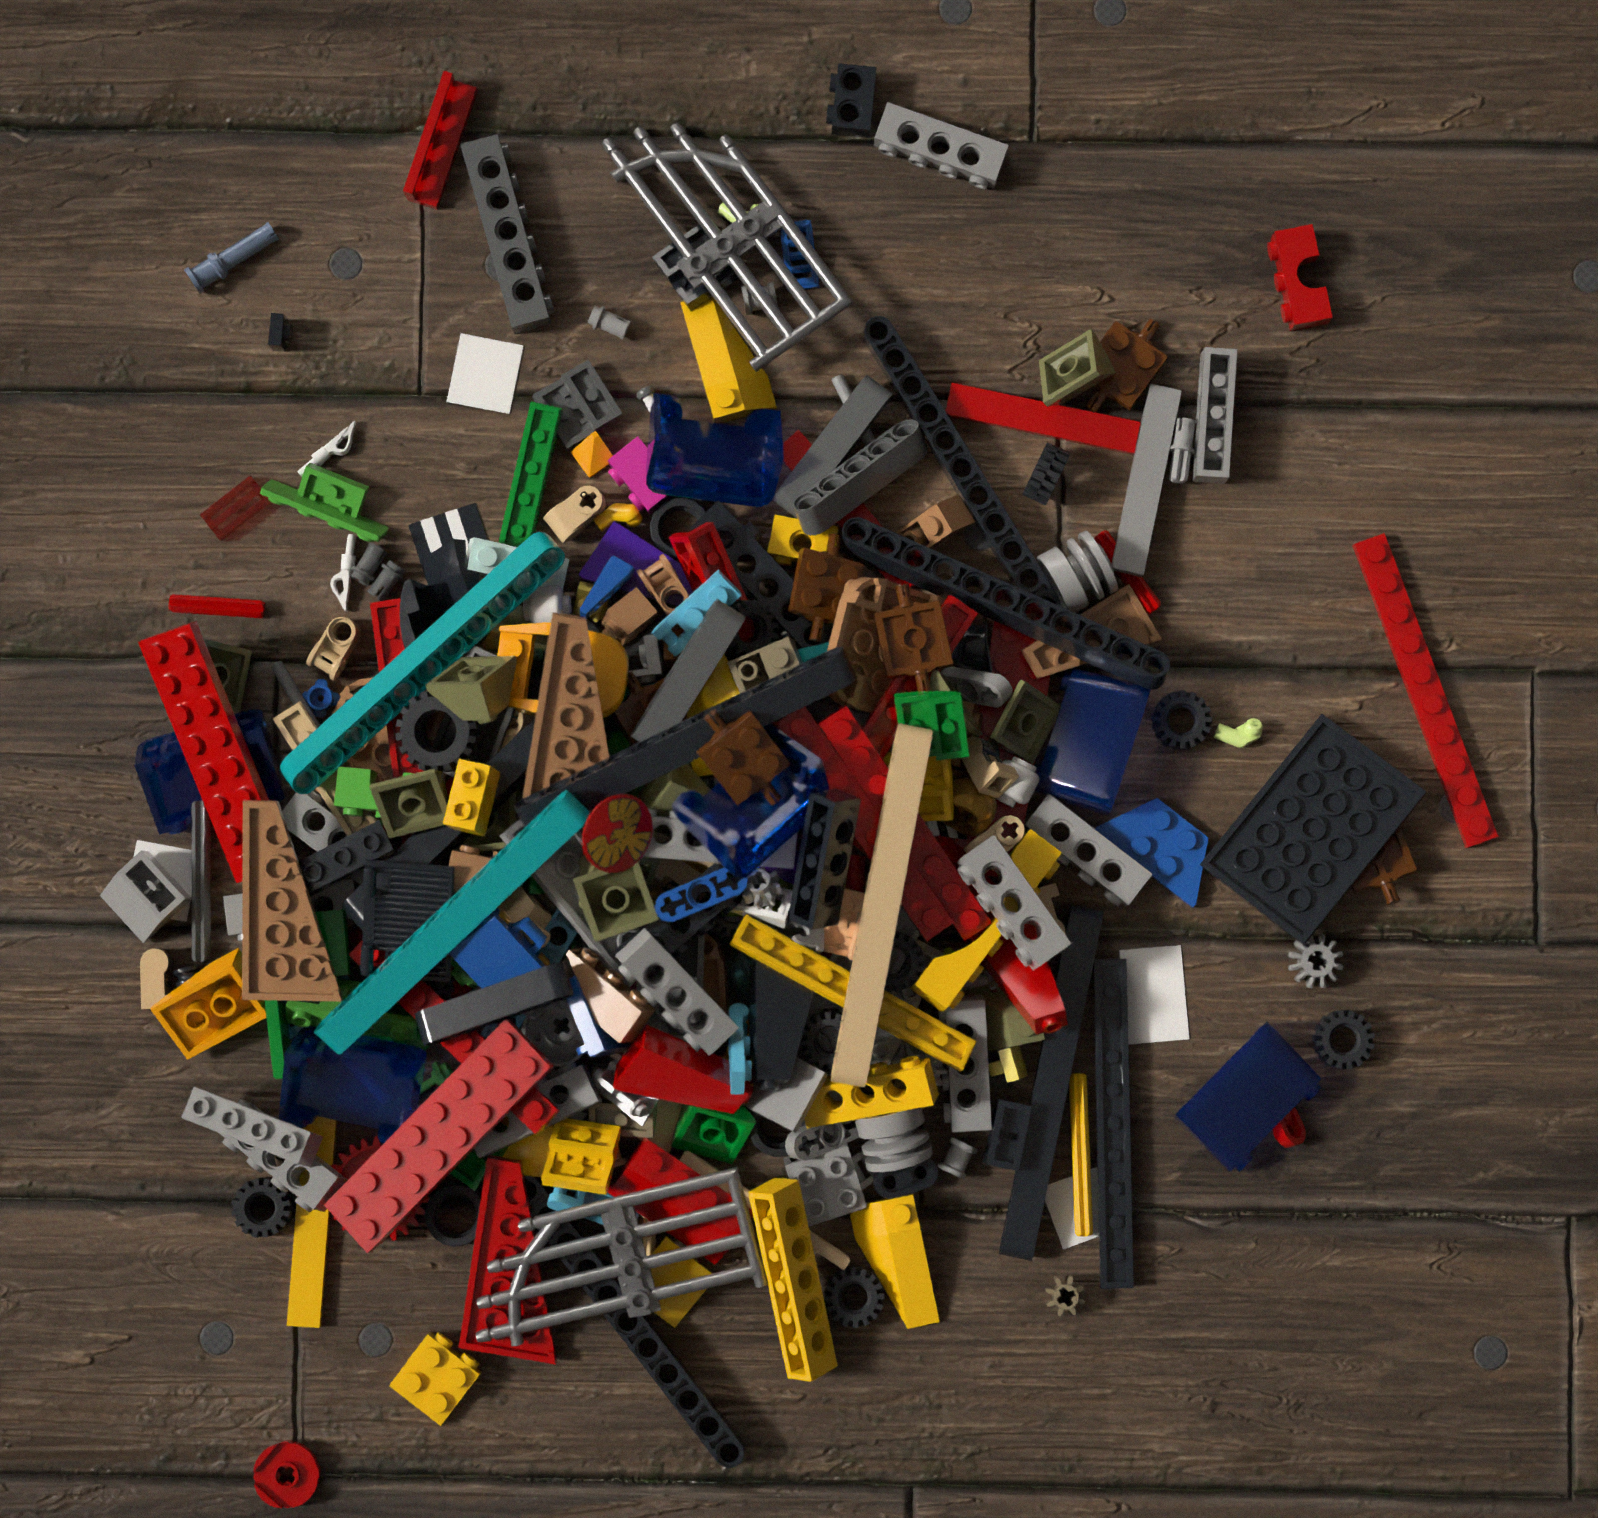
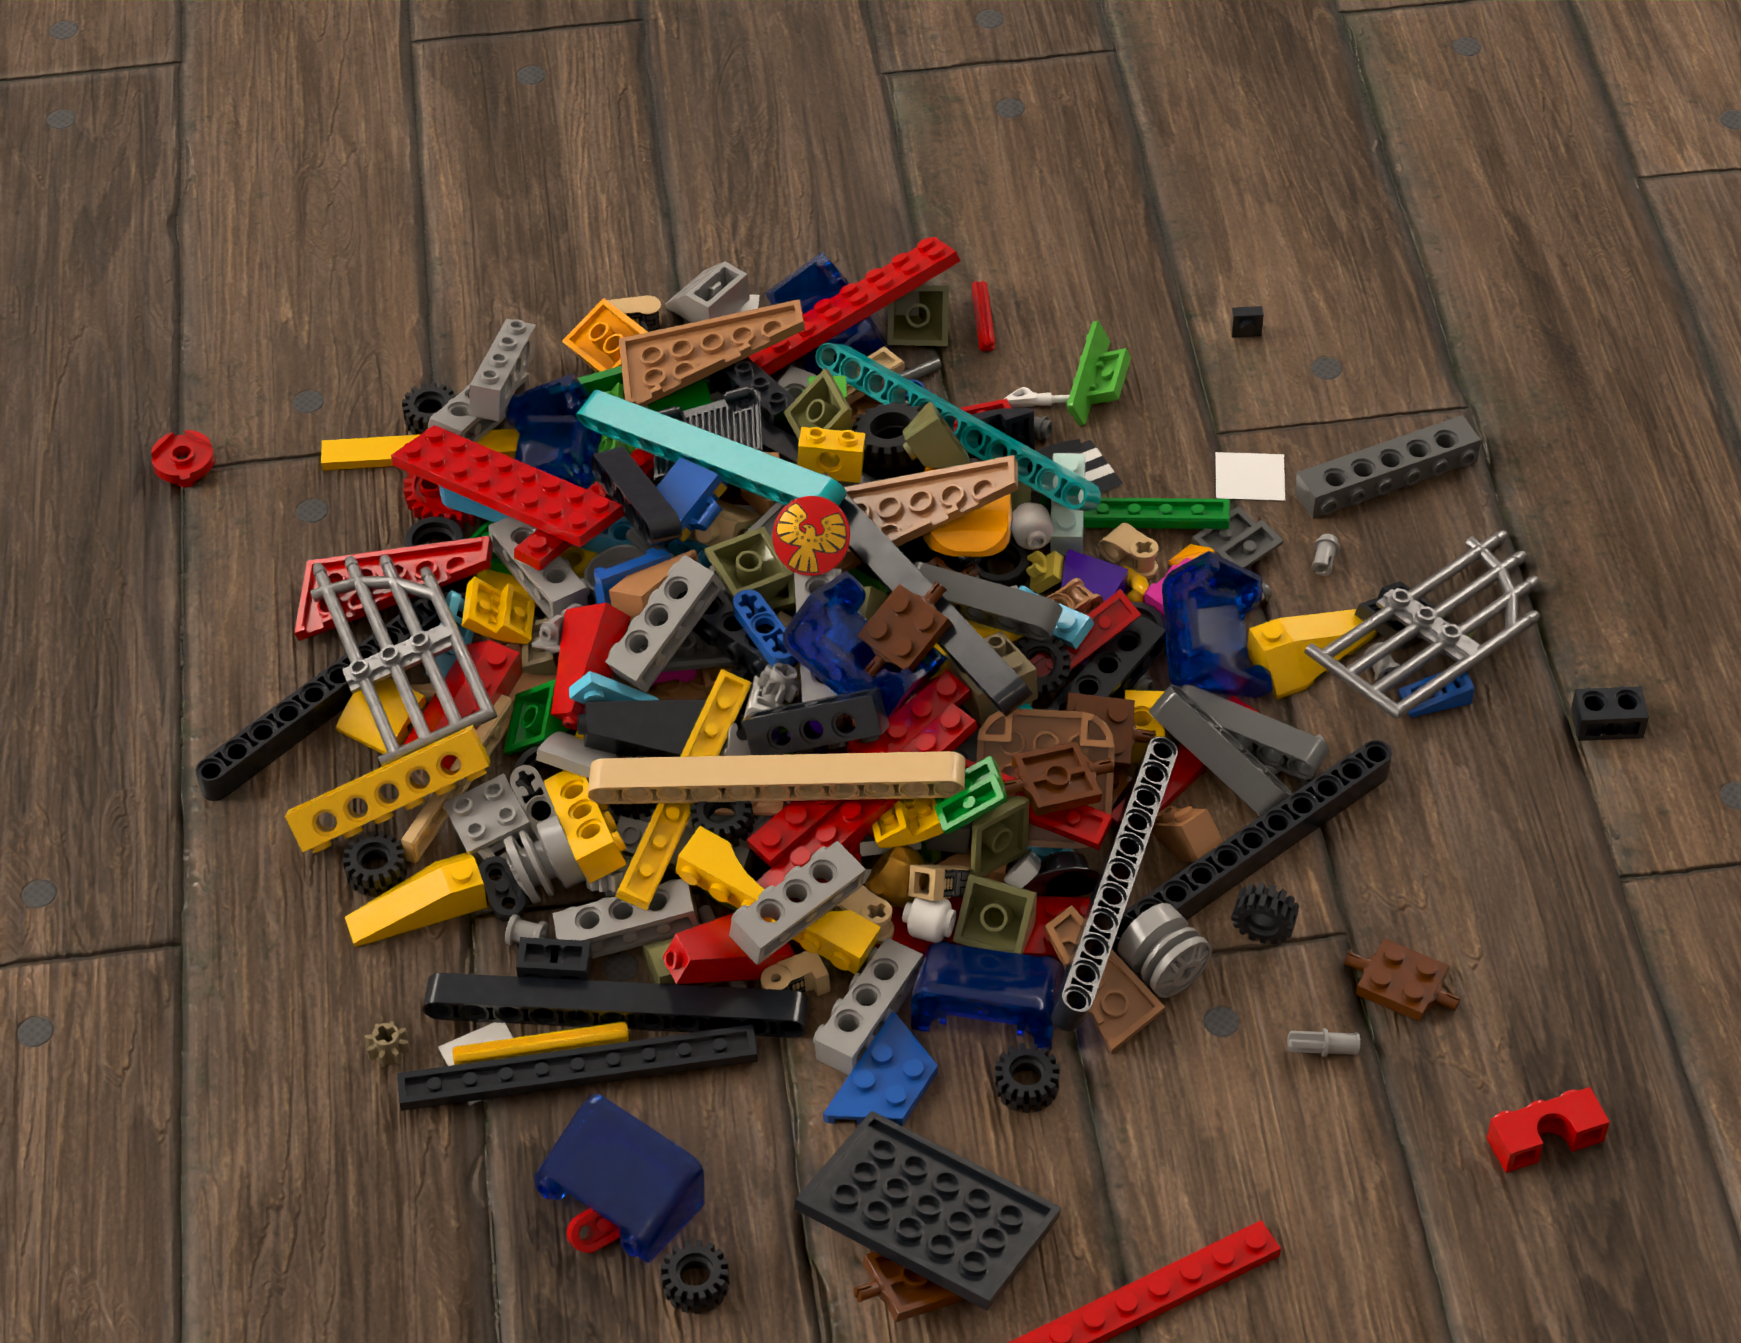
camera: 80 degrees right, 35 degrees down
(219, 264) = (1298, 278): sand blue pin -> none
(229, 497) = (1078, 312): clear red tile -> none
(331, 447) = (1152, 379): white hand -> none
(333, 648) = (963, 390): tan piece -> none
(368, 564) = (1043, 408): dark grey pin -> none
(436, 1377) = (278, 552): yellow plate -> none
(439, 141) = (1486, 419): red fence -> none
(611, 579) = (1058, 558): blue slope -> none
(628, 617) = (1037, 577): medium nougat slope -> none
(959, 141) = (1587, 790): light grey brick -> none
(1010, 1063) = (631, 964): light yellow tile -> none
(1038, 419) = (1325, 919): red tile -> none
(1074, 369) = (1378, 927): olive slope -> none
(1140, 587) = (1178, 1011): red axle -> none
(1146, 480) = (1281, 1010): light grey tile -> none
(1155, 995) = (722, 1097): white sticker -> none
(1214, 415) = (1369, 1059): light grey brick -> none
(1242, 735) = (1020, 1138): yellowish green arm -> none
(1306, 967) = (780, 1236): light grey gear -> none

